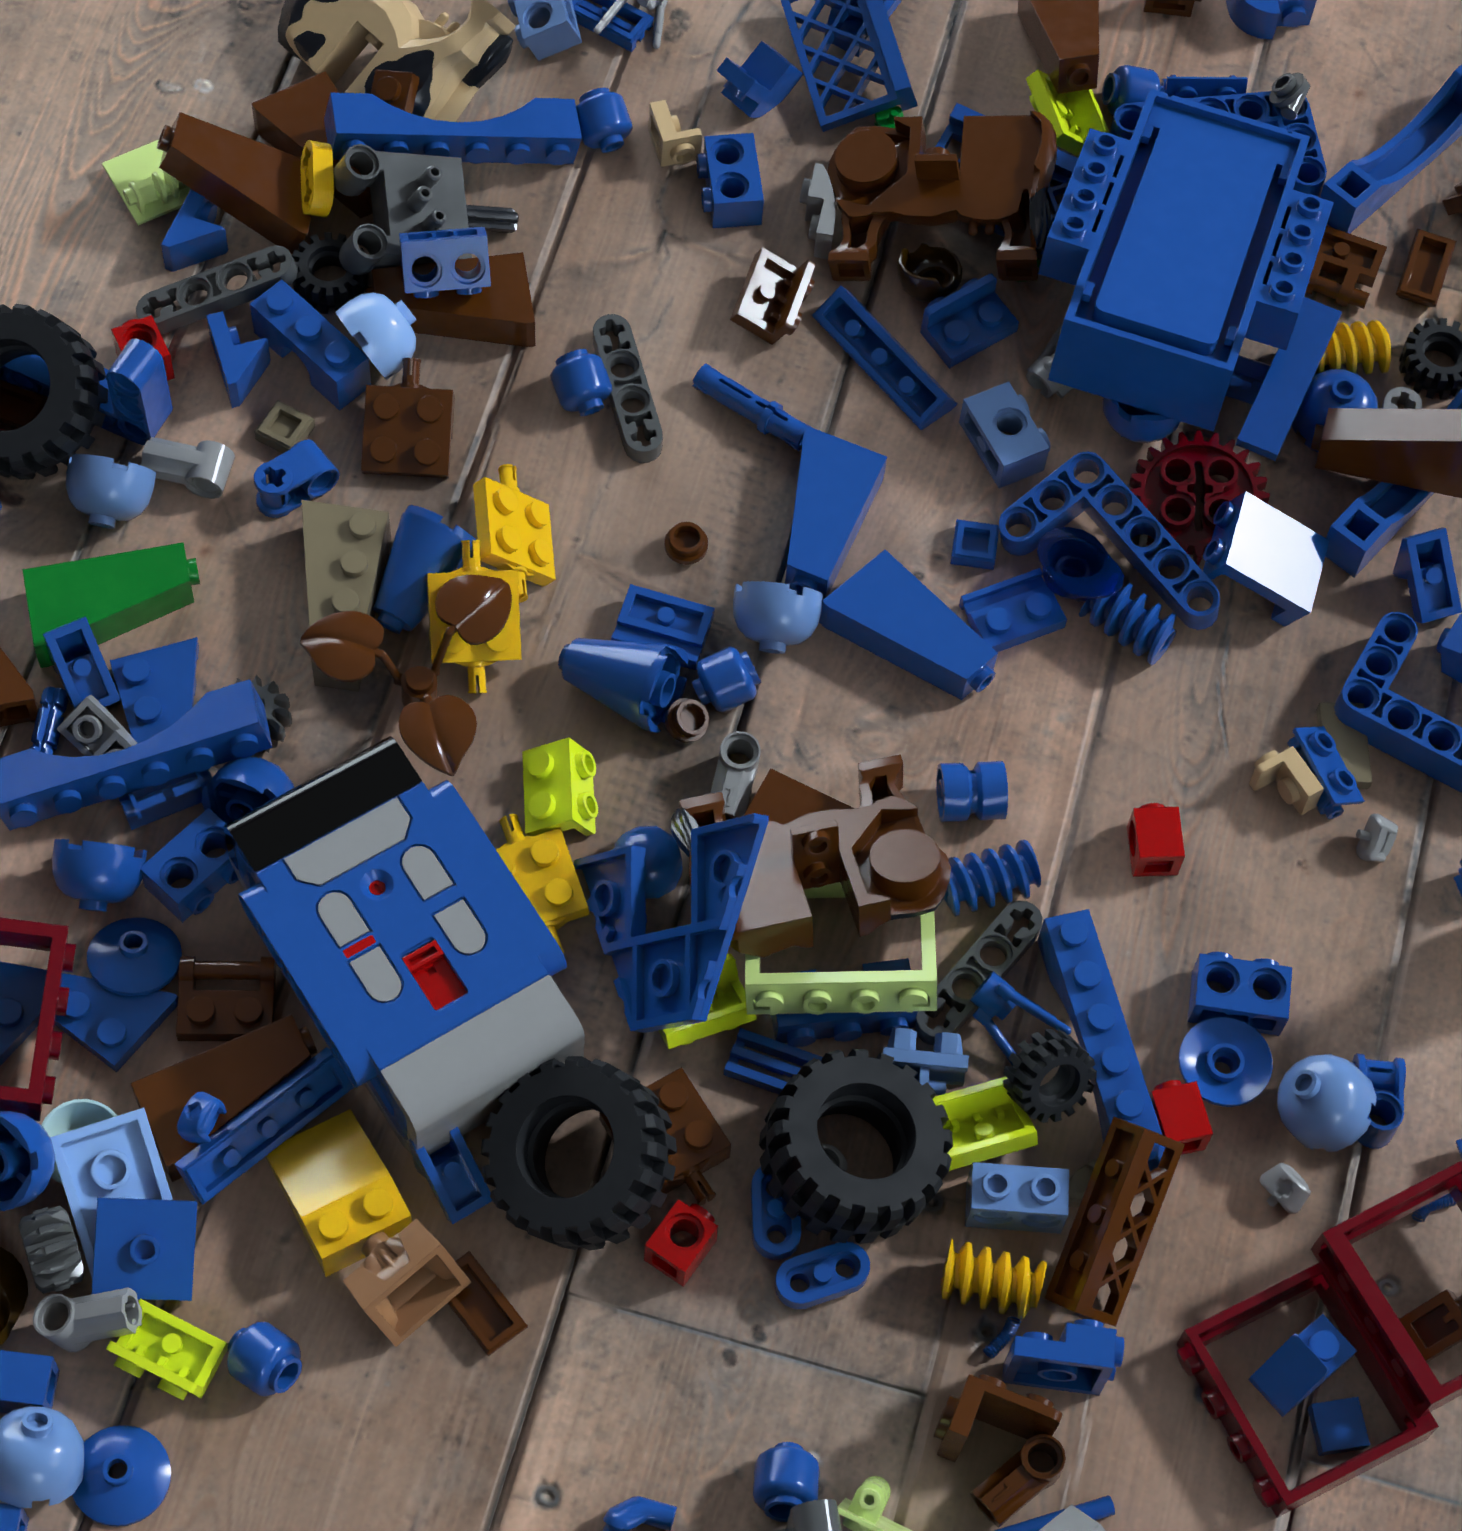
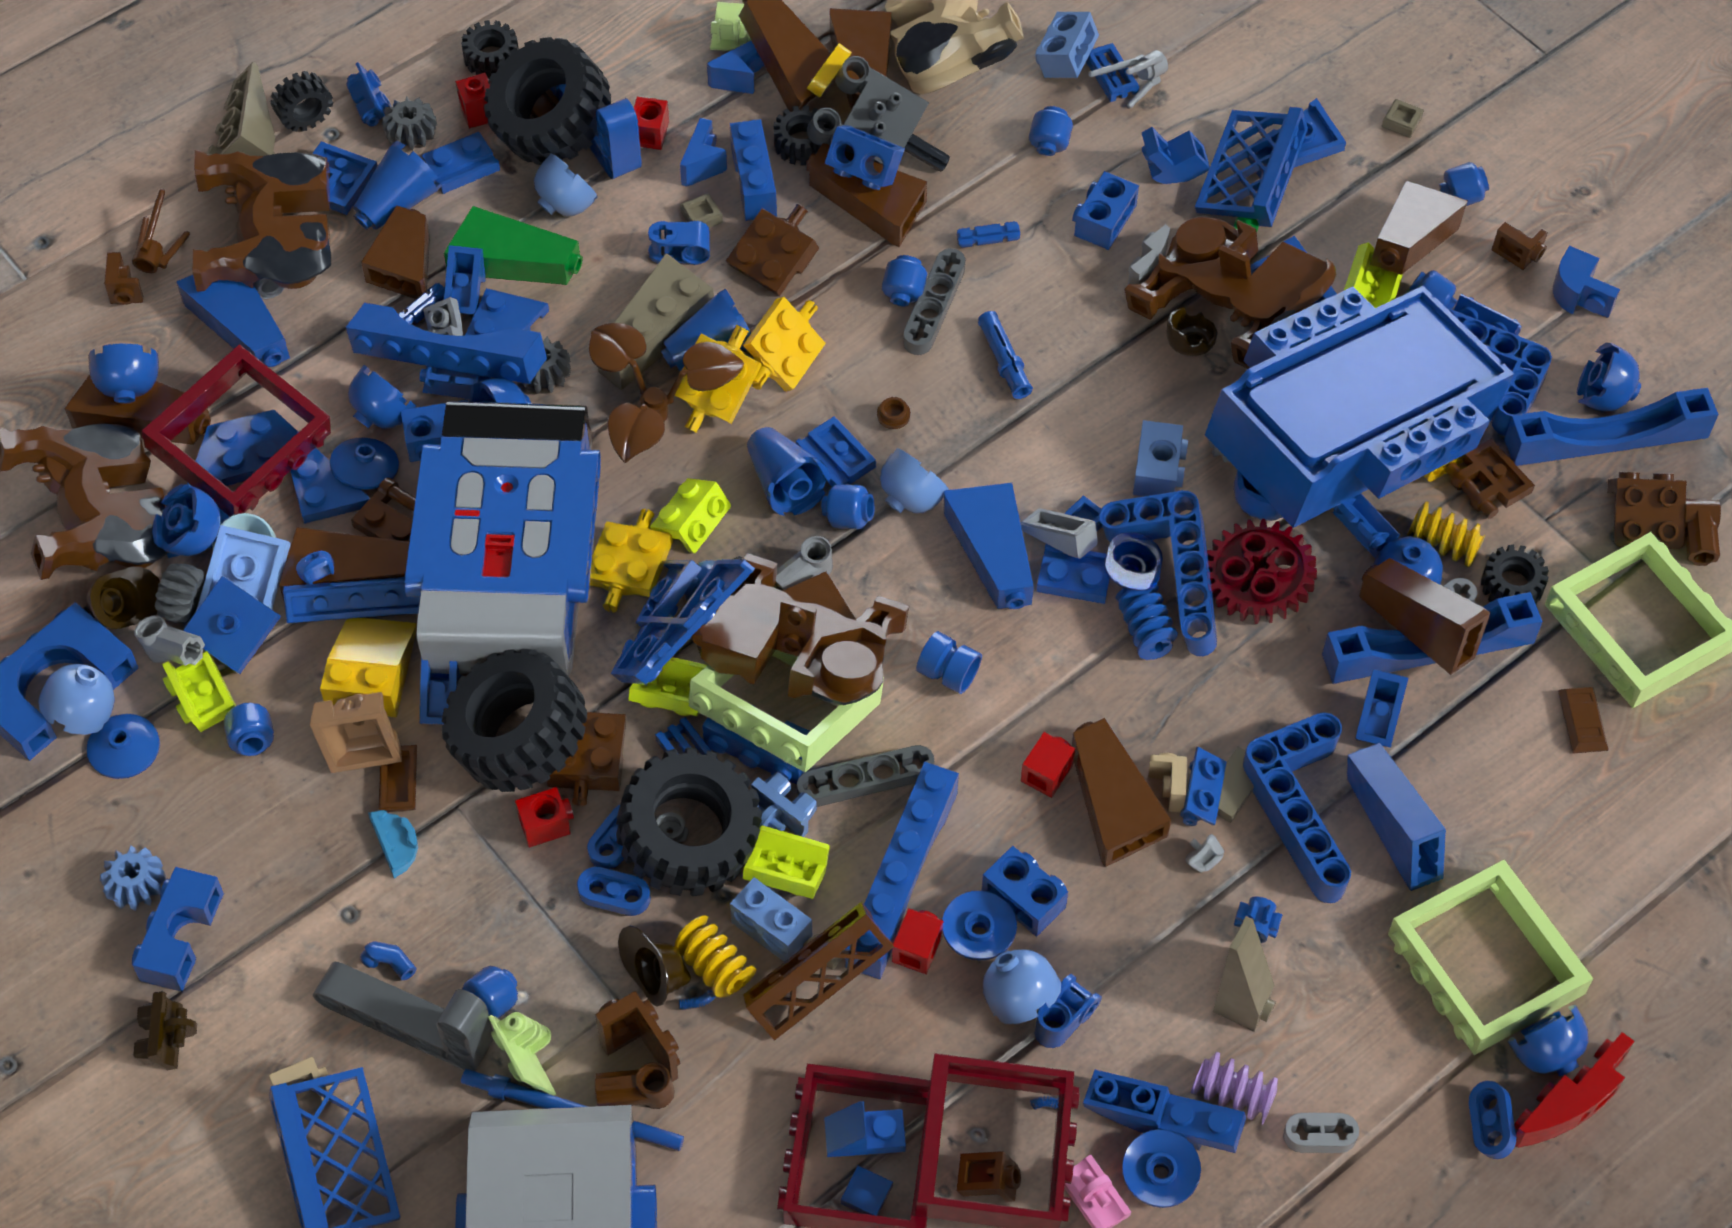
camera: 40 degrees right, 5 degrees down
(199, 467) = (628, 206): light grey piece -> none
(215, 283) = (687, 105): dark grey beam -> none
(380, 330) = (796, 180): light blue cylinder -> none
(396, 88) = (916, 42): reddish brown plate -> none
(531, 1374) = (396, 840): none -> dark azure tile
(536, 133) = (995, 115): blue arch -> none
(625, 277) = (988, 234): none -> blue axle
(668, 140) = (1086, 164): tan bracket -> none
(686, 720) = (804, 517): reddish brown plate -> none
(773, 296) = (1072, 292): reddish brown bracket -> none
(830, 505) = (1001, 441): blue slope -> none
(883, 358) = (1120, 372): blue slope -> none
(936, 1332) = (652, 965): none -> dark brown piece
(967, 321) = (1193, 376): blue bracket -> none
(979, 571) = (1062, 531): none -> light grey slope
(992, 875) = (914, 721): blue piece -> none
(998, 999) = (859, 795): blue plant -> none
(1034, 1064) = (851, 838): black tyre -> none
(1076, 1363) = (719, 1033): blue plate -> none
(1244, 830) = (1117, 797): none -> reddish brown slope
(1267, 555) = (1270, 628): panel -> none
(1285, 1187) = (954, 1028): light grey piece -> none
(1288, 380) = (1380, 525): blue tile -> none
(1289, 94) = (1537, 347): dark grey plate -> none
(1370, 91) = (1610, 379): none -> blue cylinder
(1425, 268) = (1556, 515): reddish brown tile -> none

